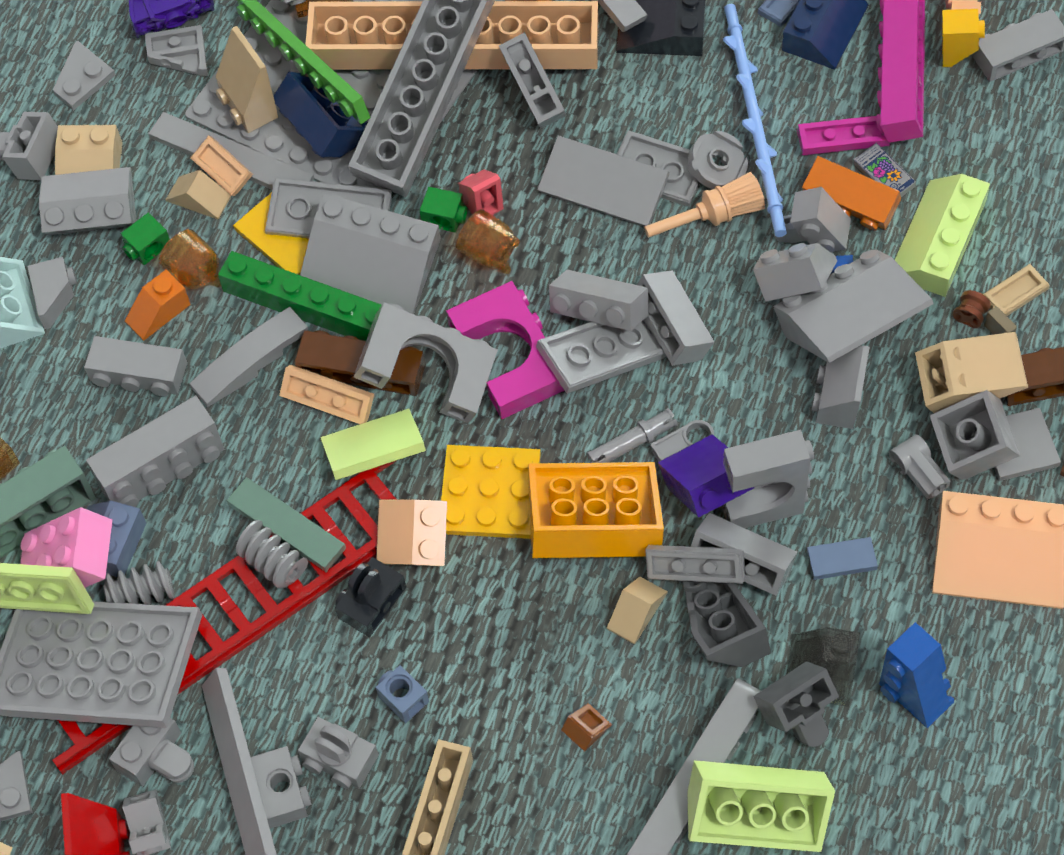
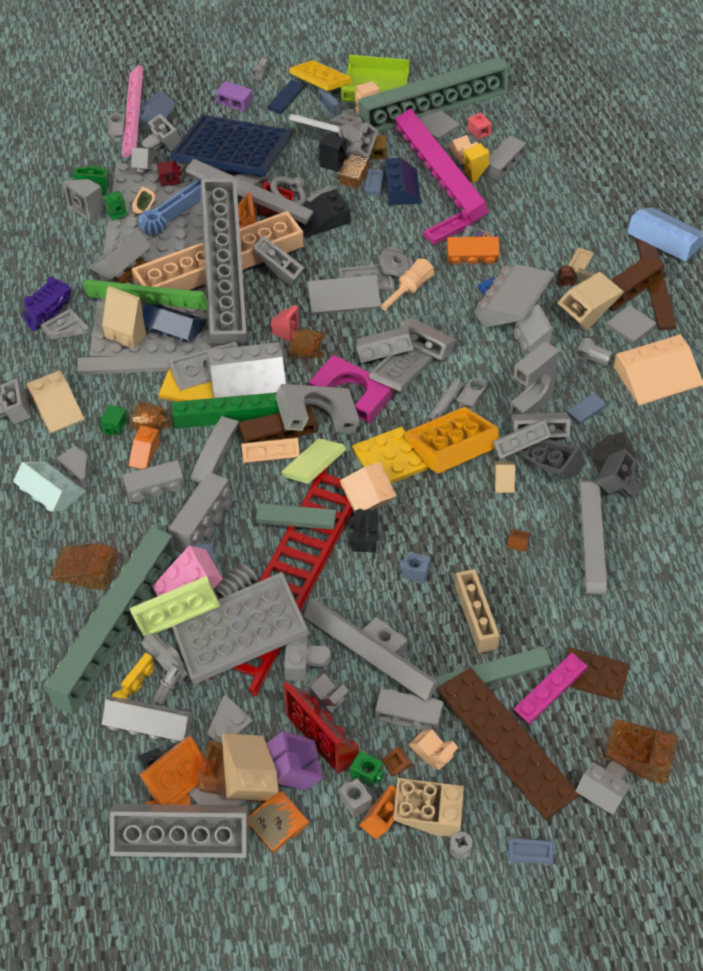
camera: 35 degrees left, 10 degrees down
(81, 76) = (16, 360): light grey wing -> none
(87, 201) = (68, 414): light grey slope -> none
(199, 194) = (126, 387): tan slope -> none
(221, 166) = (131, 369): light nougat tile -> none
(269, 556) = (301, 532): light grey piece -> none
(337, 753) = (403, 608): light grey brick -> none
(443, 209) = (269, 335): green brick -> none
(699, 476) = (497, 397): dark purple brick -> none
(754, 123) = (400, 237): light blue plant -> none
(758, 806) = (633, 529): yellowish green slope -> none
(793, 270) = (474, 289): light grey slope -> none
(817, 220) = (466, 268): light grey brick -> none
(915, 677) = (665, 436): blue wedge -> none
(942, 230) = (526, 244): yellowish green slope -> none
(974, 435) = (612, 325): light grey brick -> none

